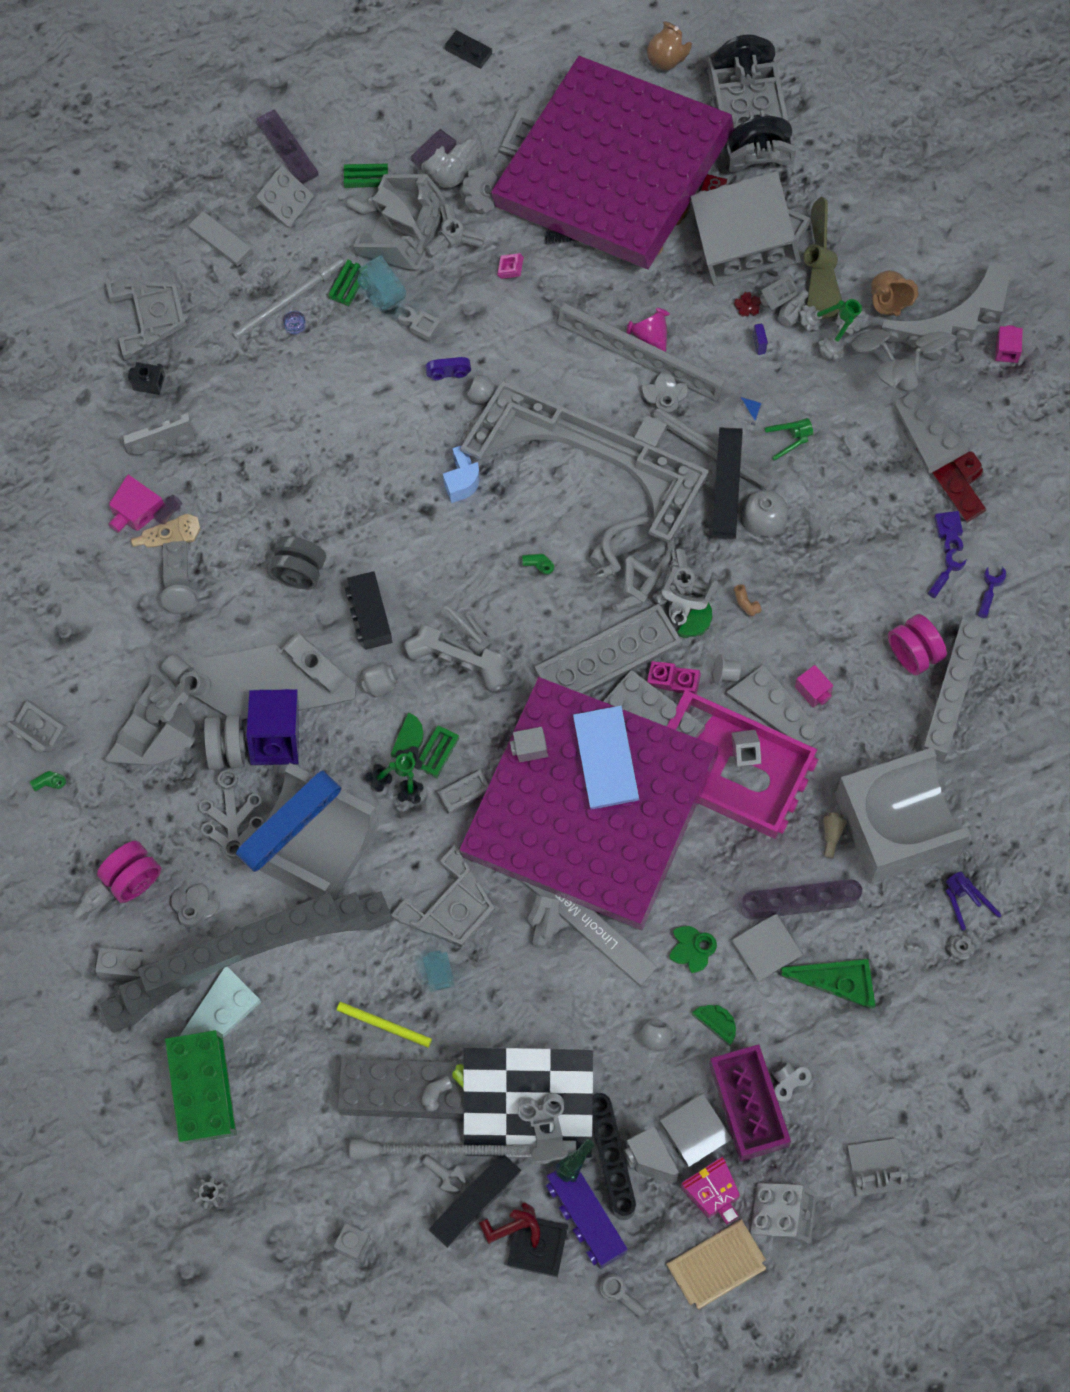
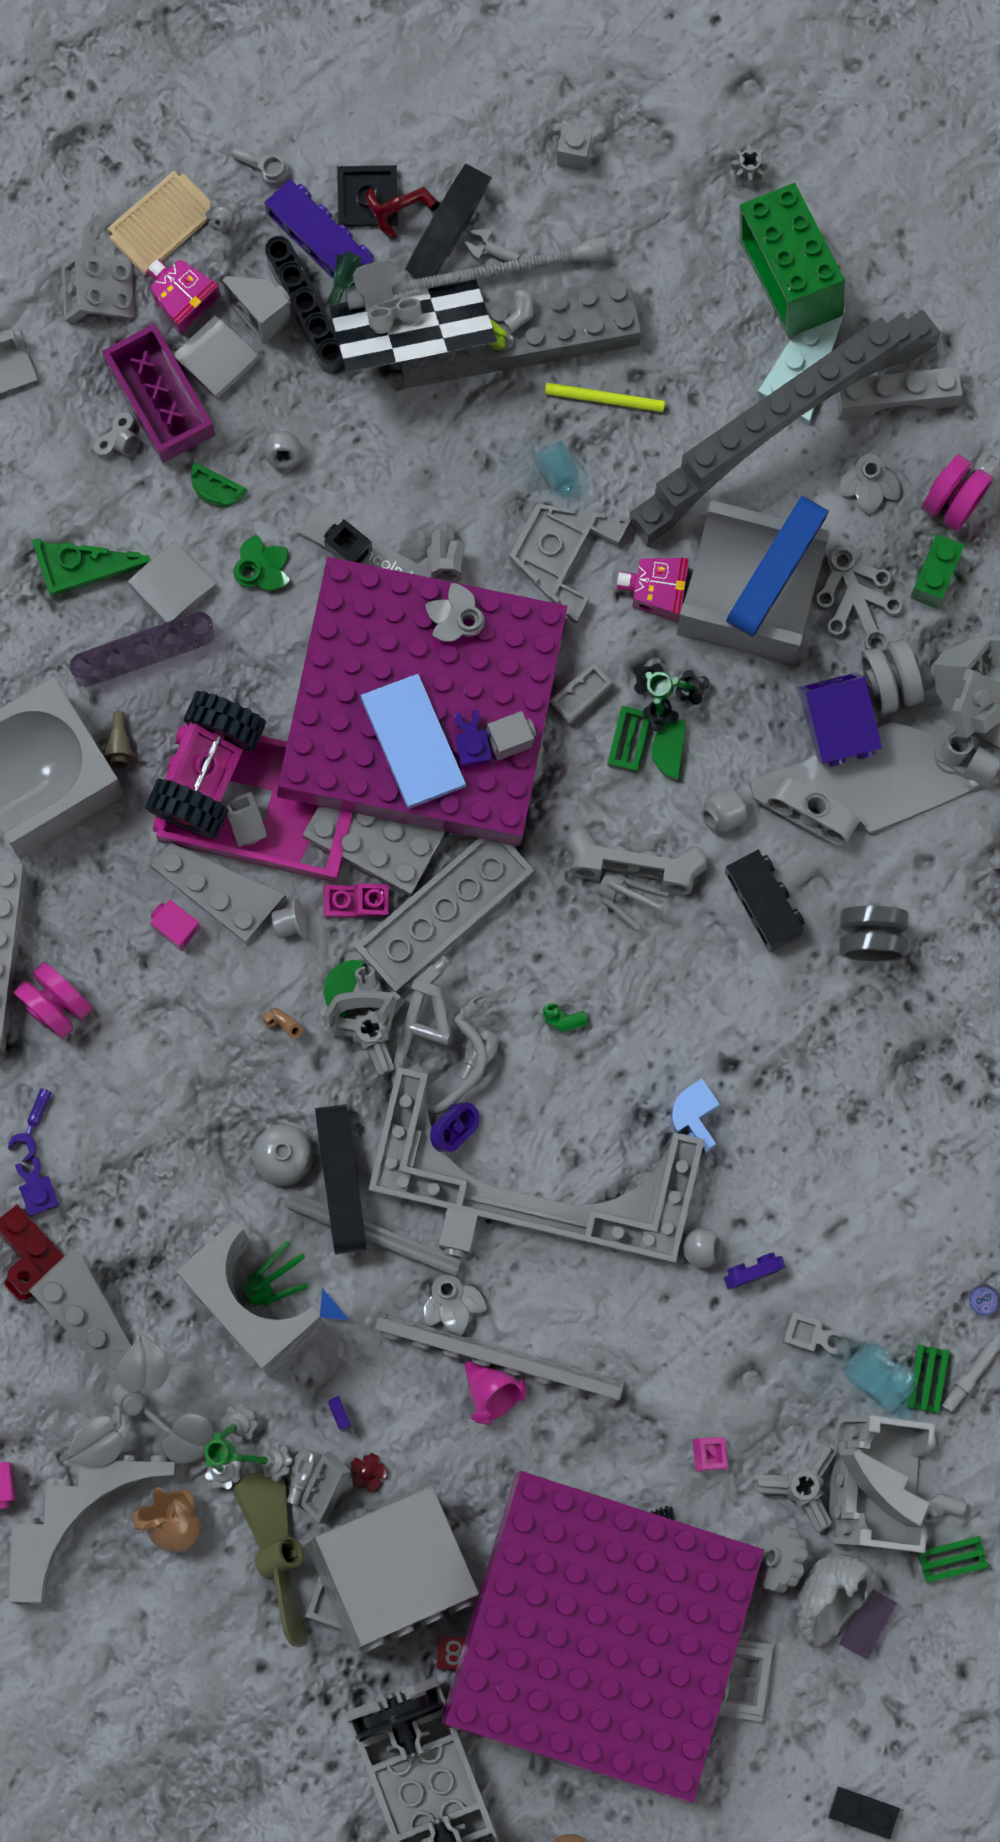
camera: 165 degrees right, 10 degrees up
(164, 820) = (937, 571): none -> green brick
(383, 859) = (657, 586): none -> dark pink torso
(552, 854) = (452, 612): none -> light grey plate
(560, 747) = (471, 744): none -> dark purple plate
(621, 932) = (346, 533): none -> black brick
(637, 500) = (451, 1132): none -> dark purple plate
(665, 1252) = (223, 216): none -> light grey plant
(786, 756) = (205, 764): none -> black plate
(809, 380) = (212, 1279): none -> light grey piece

